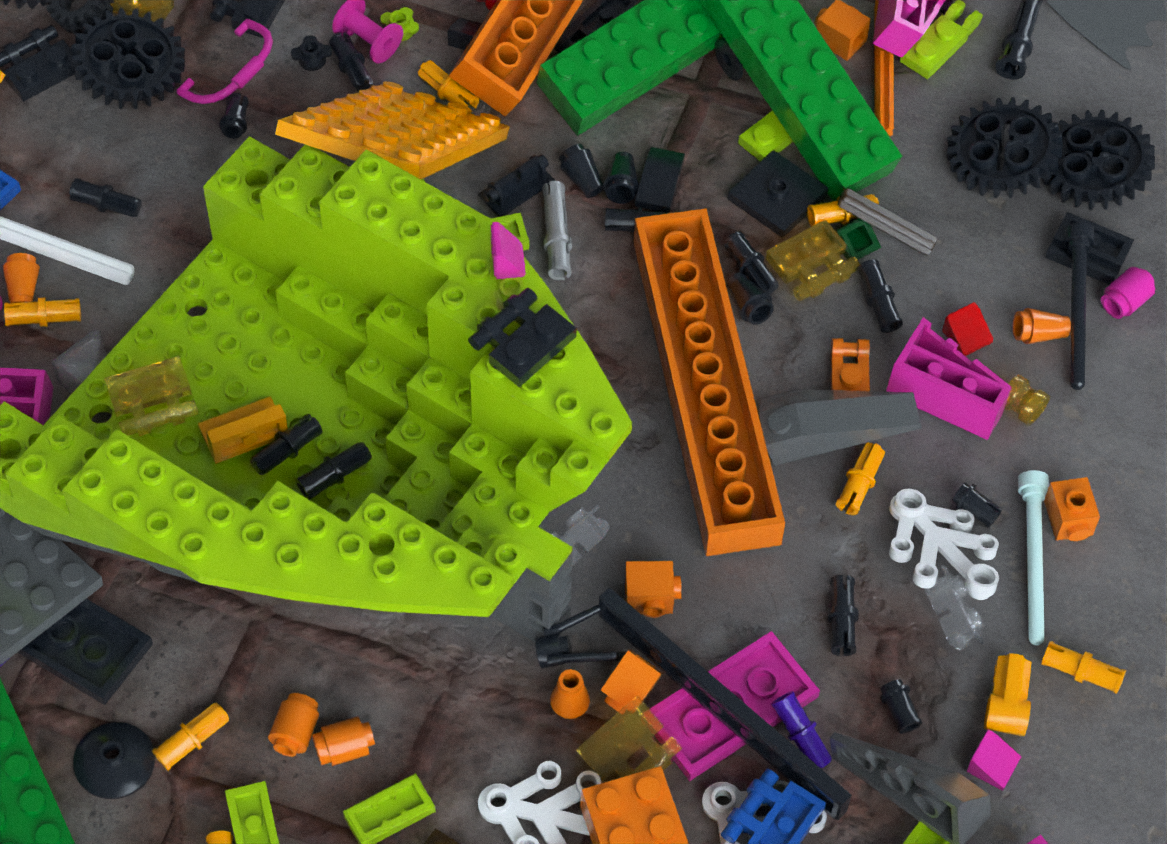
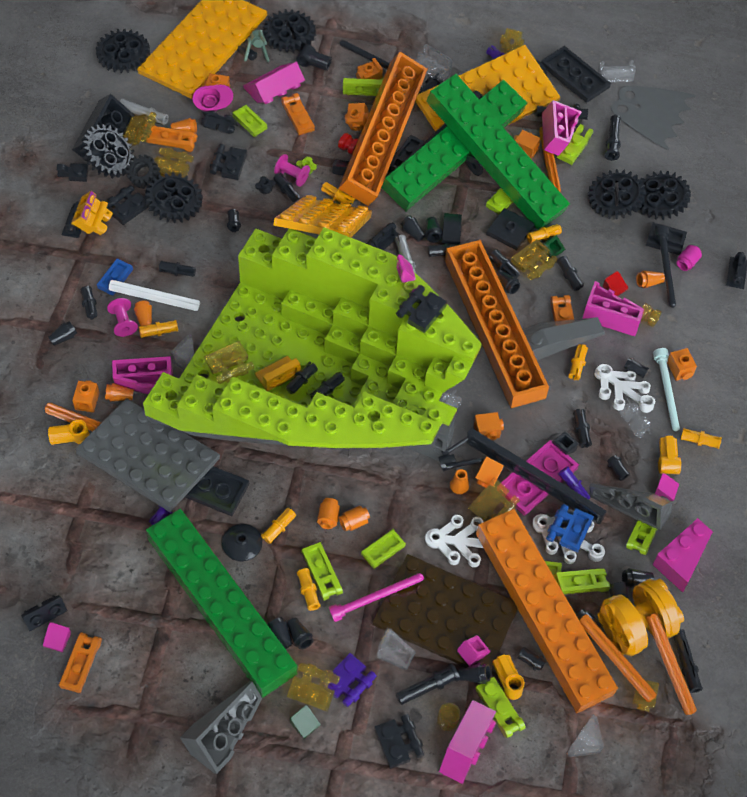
camera: 10 degrees left, 0 degrees up
(243, 76) = (235, 199): dark pink piece -> none
(801, 643) = (566, 443): none -> black slope
(887, 221) = (567, 236): axle -> none

